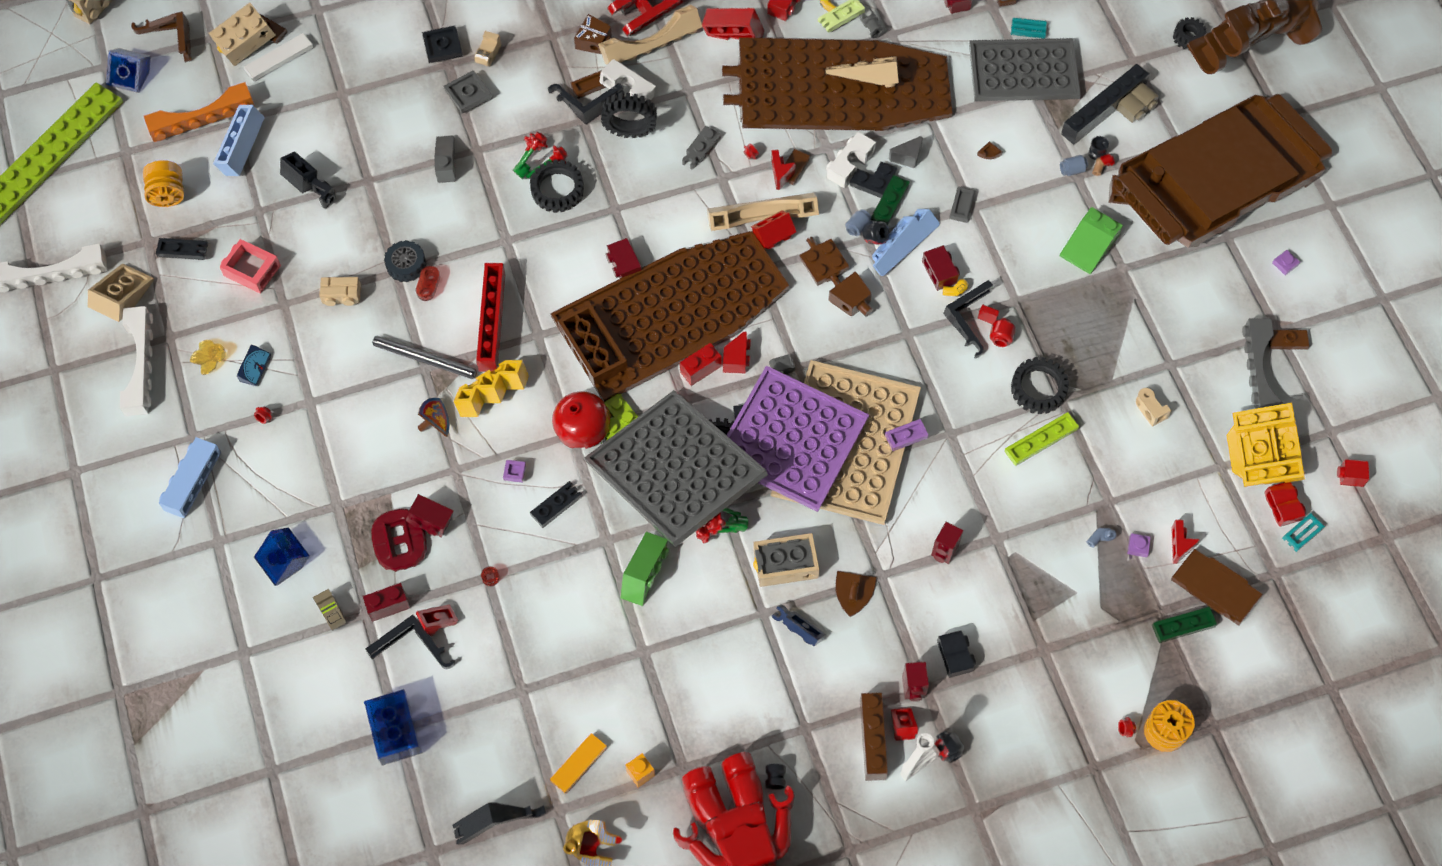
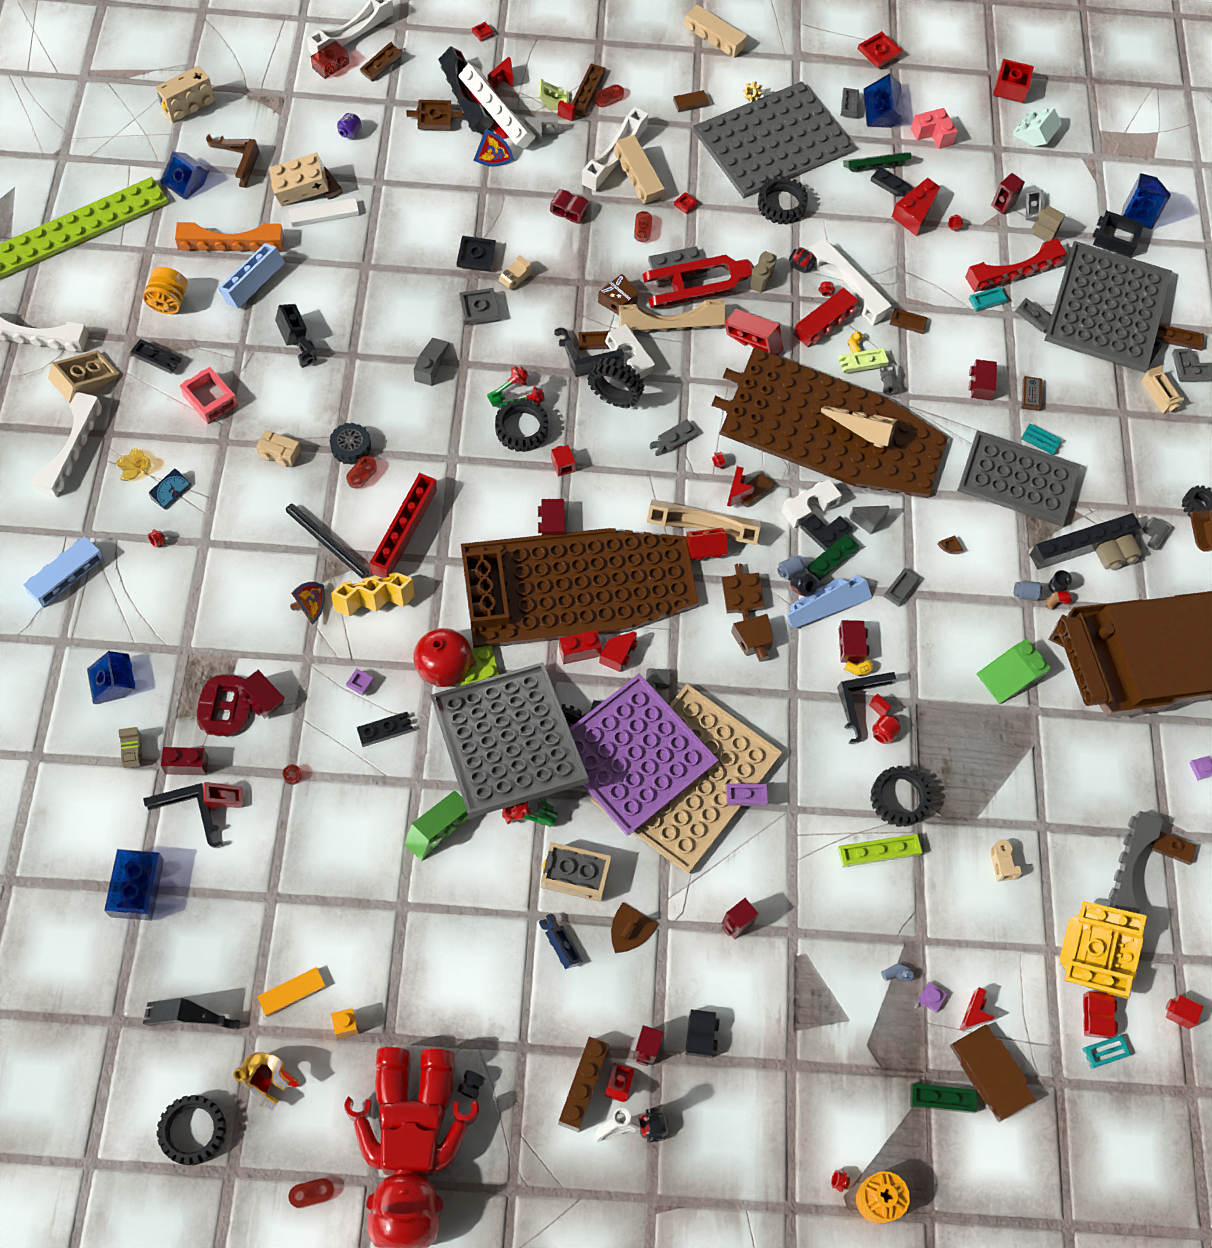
camera: 15 degrees right, 0 degrees up
(609, 203) = (563, 460): none -> red brick
(1163, 72) = (1157, 531): none -> dark grey piece

